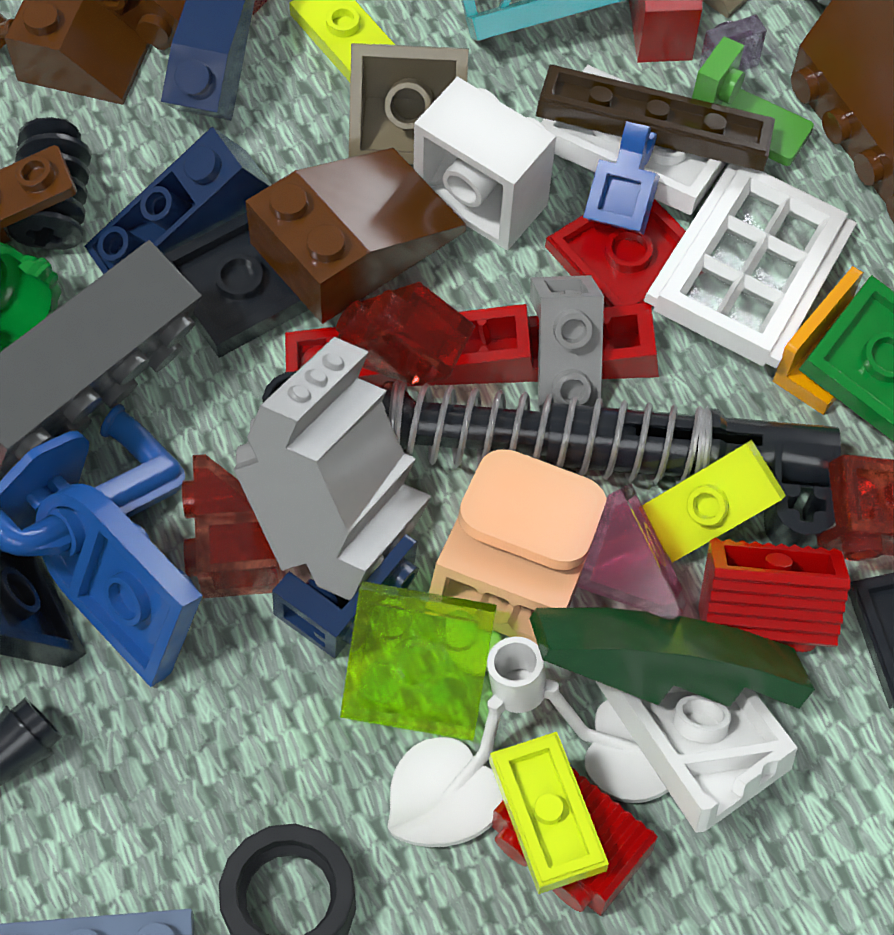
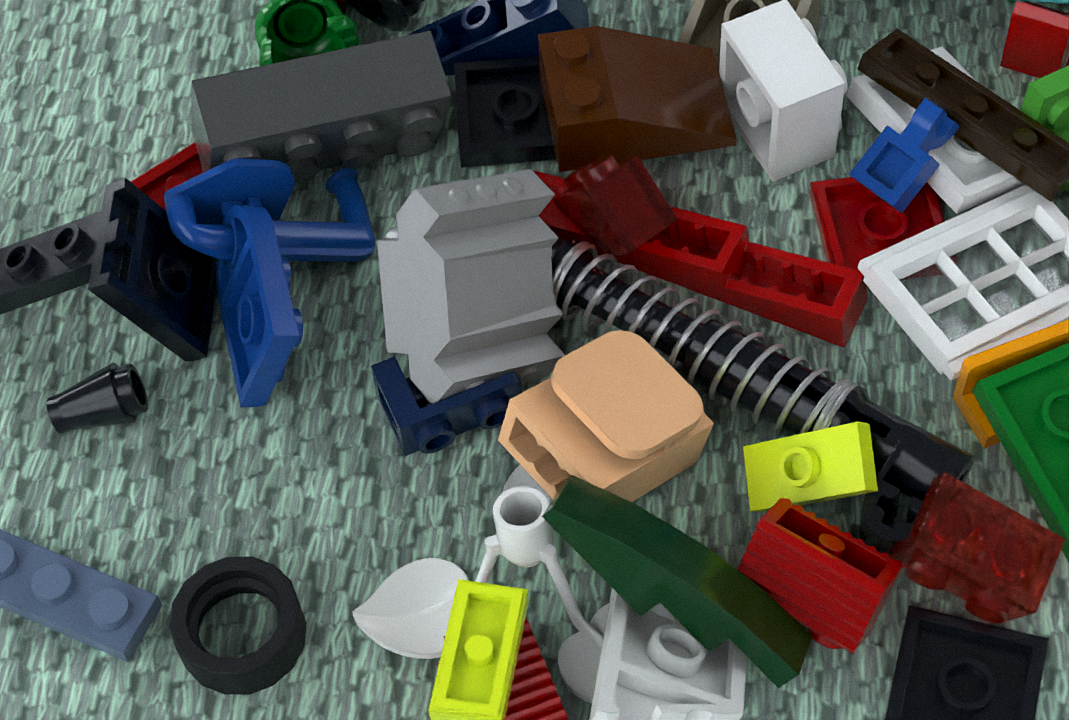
camera: 35 degrees right, 5 degrees down
(229, 544) = (355, 318): clear red slope -> none
(417, 660) = (453, 475): clear neon green plate -> none
(569, 338) = (766, 270): light grey bracket -> none
(629, 560) = (697, 476): clear pink slope -> none

